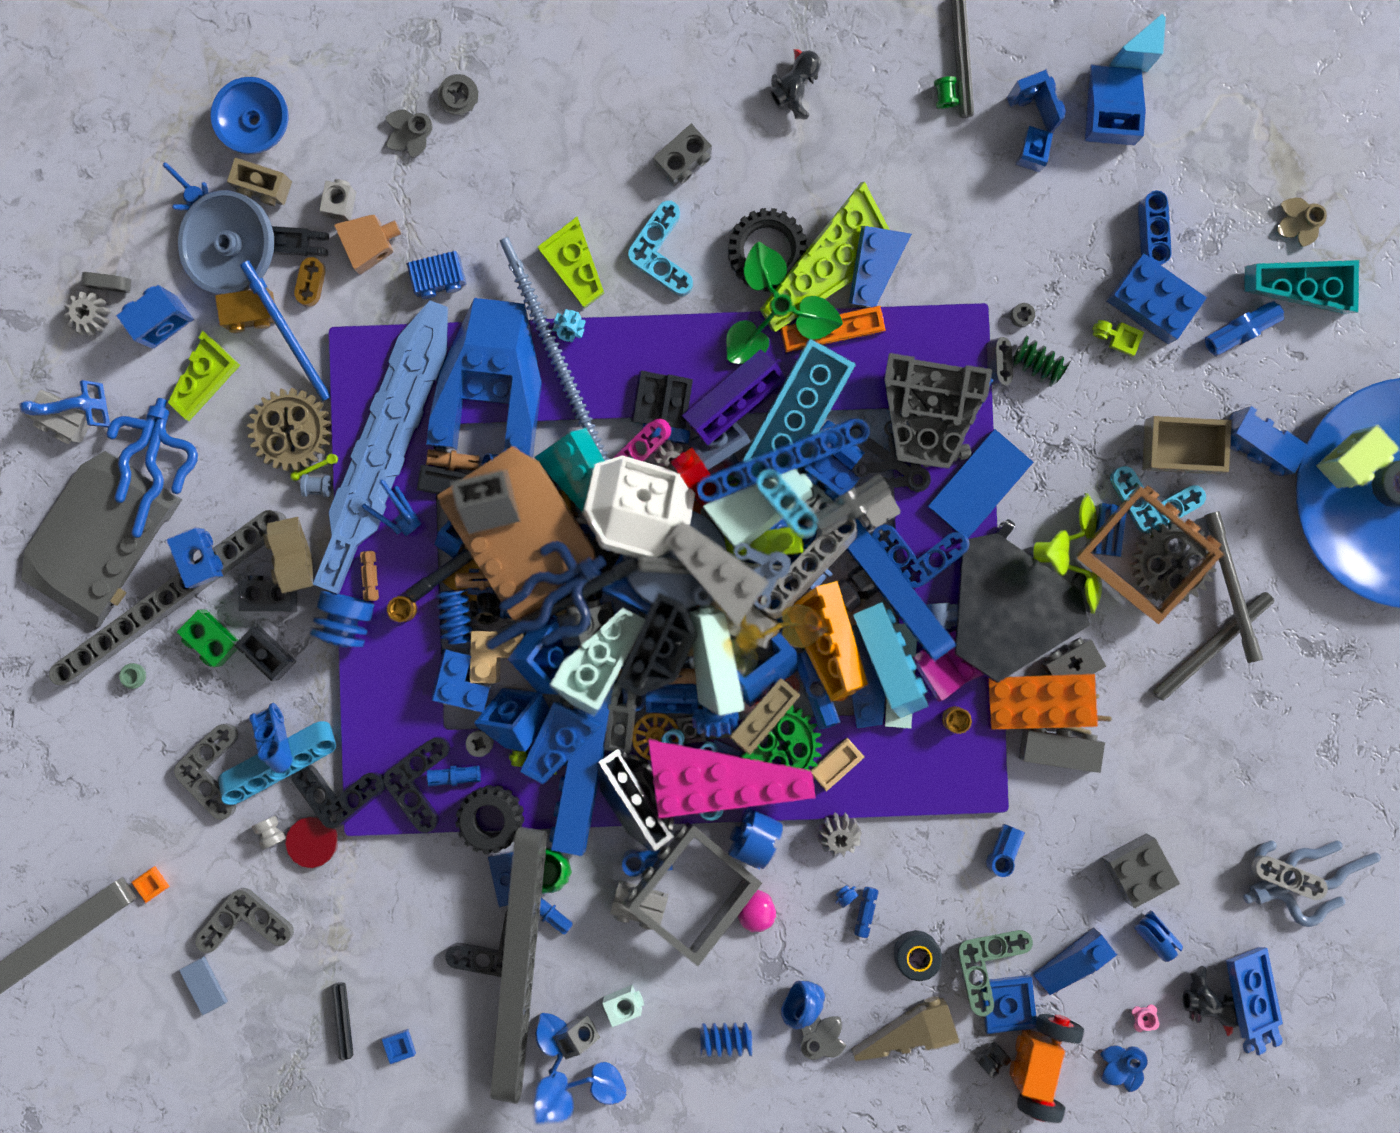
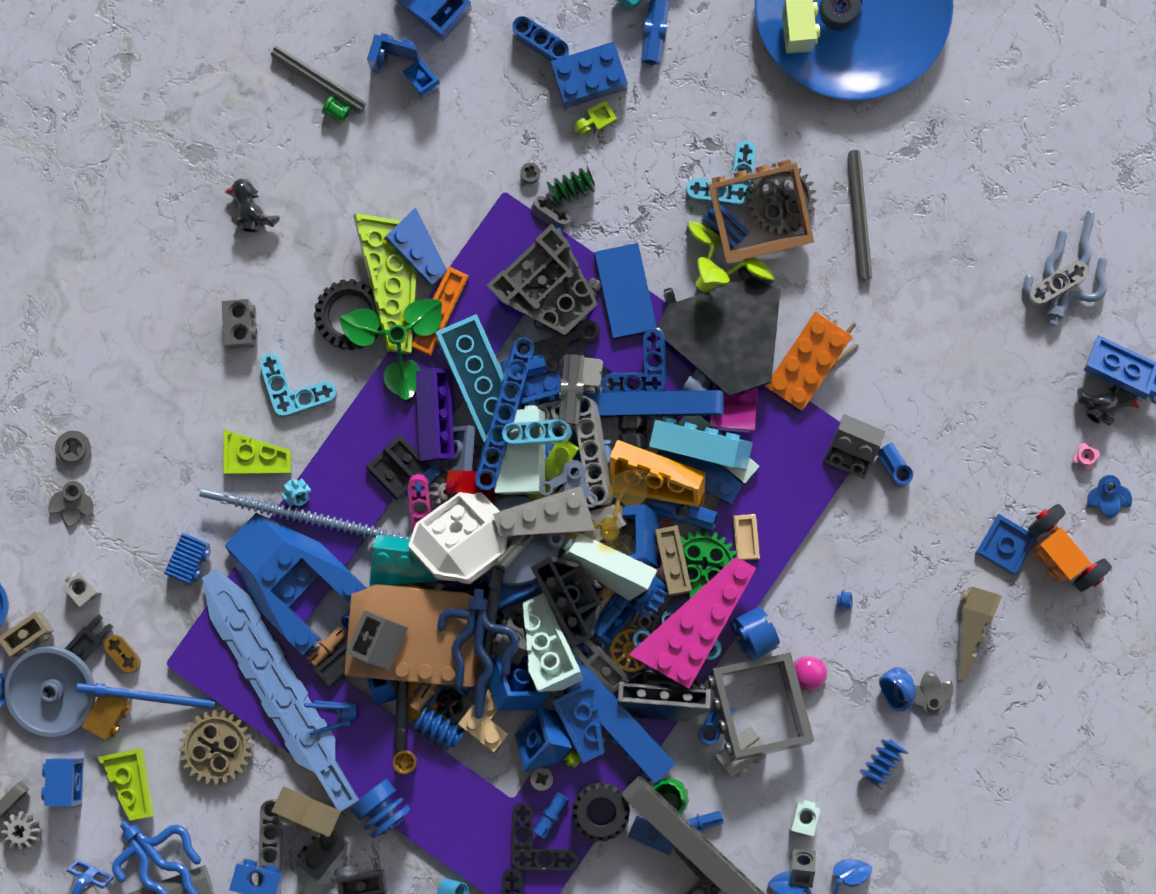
camera: 55 degrees left, 5 degrees down
(315, 485) = (270, 759): sand blue bush -> none
(331, 459) = (260, 732): lime hinge -> none
(367, 240) = (125, 590): medium nougat torso -> none
(369, 575) = (363, 768): medium nougat axle -> none
(451, 684) = (487, 767): blue brick -> none
(839, 834) = (803, 577): light grey gear -> none
(866, 912) = (867, 595): blue axle -> none
(922, 964) = (928, 587): black wheel -> none
(959, 723) = (779, 427): pearl gold wheel -> none
(982, 955) = (958, 534): sand green beam -> none
(989, 1064) = (1036, 589): black wheel -> none
(995, 801) = (854, 446): none -> dark grey slope
(1062, 749) = (853, 372): dark grey brick -> none
(1075, 962) = (1010, 475): blue slope -> none
(1083, 650) = (795, 307): dark grey brick -> none
(1140, 870) = (978, 381): dark grey brick -> none
(1158, 937) = (1034, 404): blue arm -> none
(1186, 445) = (705, 130): dark tan piece -> none
(1249, 640) = (873, 188): dark grey piece -> none
(1265, 443) = (743, 76): blue wedge -> none

